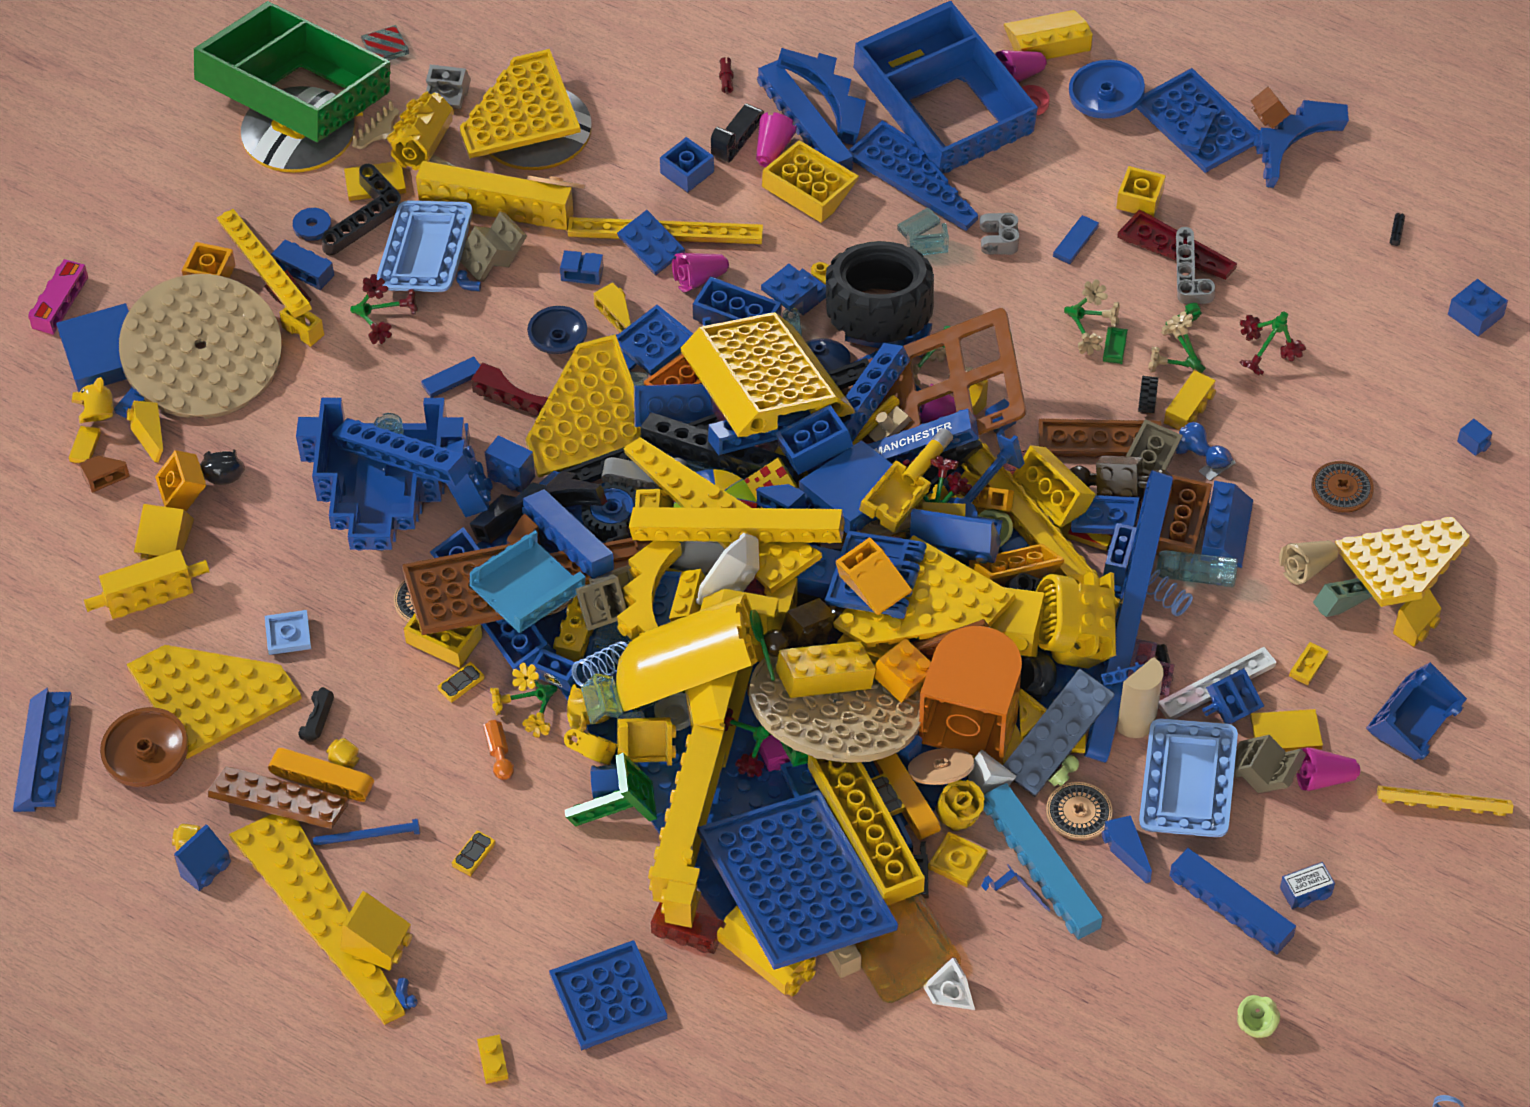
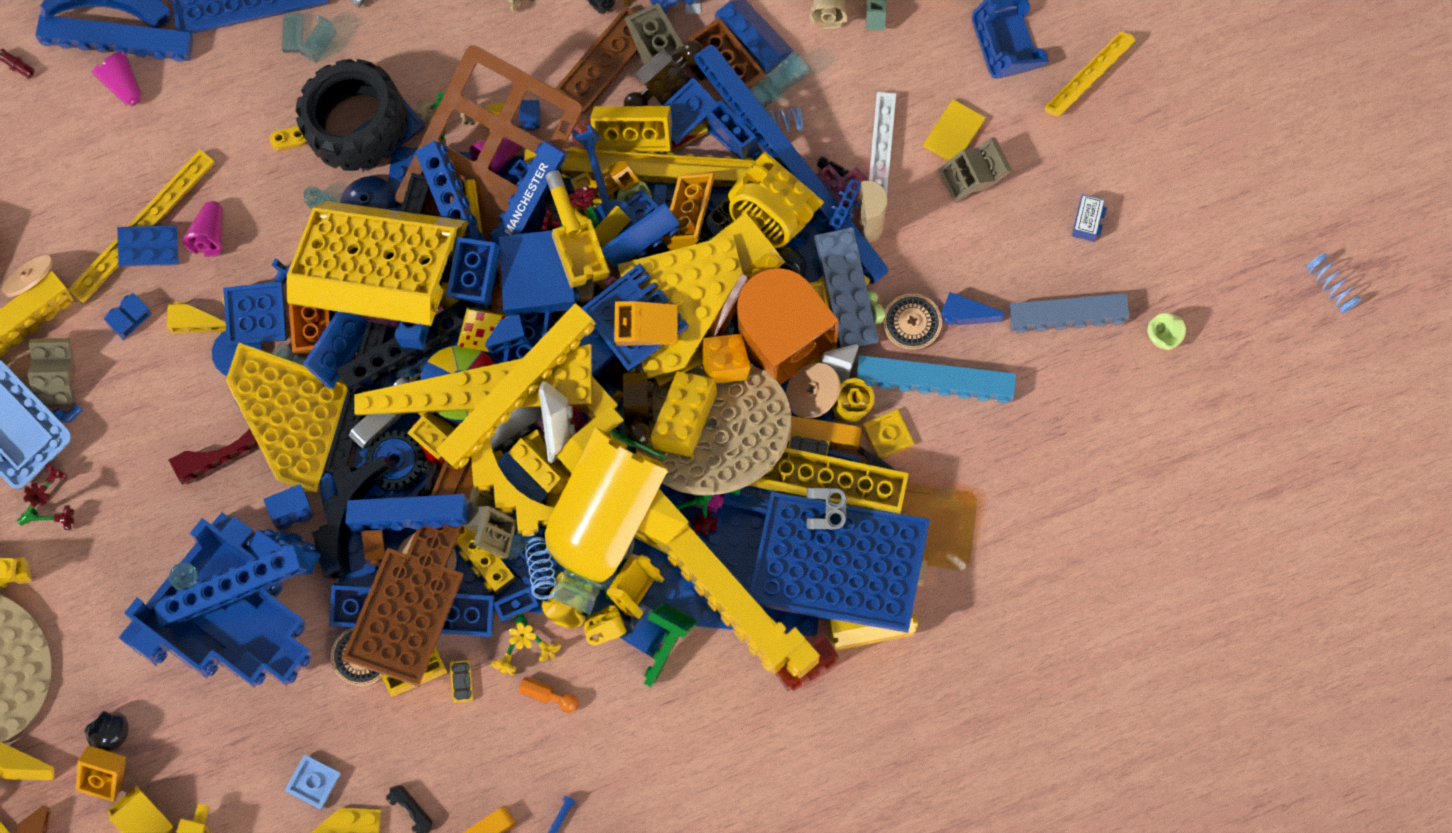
camera: 55 degrees left, 20 degrees up
(343, 753) = (463, 813): yellow head -> none
(450, 377) = (156, 491): blue tile -> none
(473, 853) = (624, 774): tile -> none
(524, 583) = (433, 576): dark azure panel -> none
(557, 329) = (173, 370): dark blue dish -> none
(608, 995) = (819, 759): blue plate -> none
(687, 164) = (90, 162): blue brick -> none
(729, 141) = (85, 99): black beam -> none
(729, 302) = (270, 230): blue brick -> none
(795, 289) = (288, 172): blue bracket -> none
(808, 181) = (186, 82): yellow slope -> none
(838, 835) = (825, 493): none -> light grey piece
(889, 424) = (488, 203): tan tile -> none
(950, 987) = (990, 517): white slope -> none
(1004, 879) = (928, 416): blue piece -> none
(1188, 778) = (948, 228): light blue wedge -> none
(1202, 927) = (1068, 313): none -> sand blue brick
(1232, 901) = (1063, 276): blue brick -> none
(1233, 697) = (905, 146): blue plate -> none
(1308, 663) = (912, 72): yellow plate -> none
(1325, 769) = (1010, 131): dark pink cone -> none

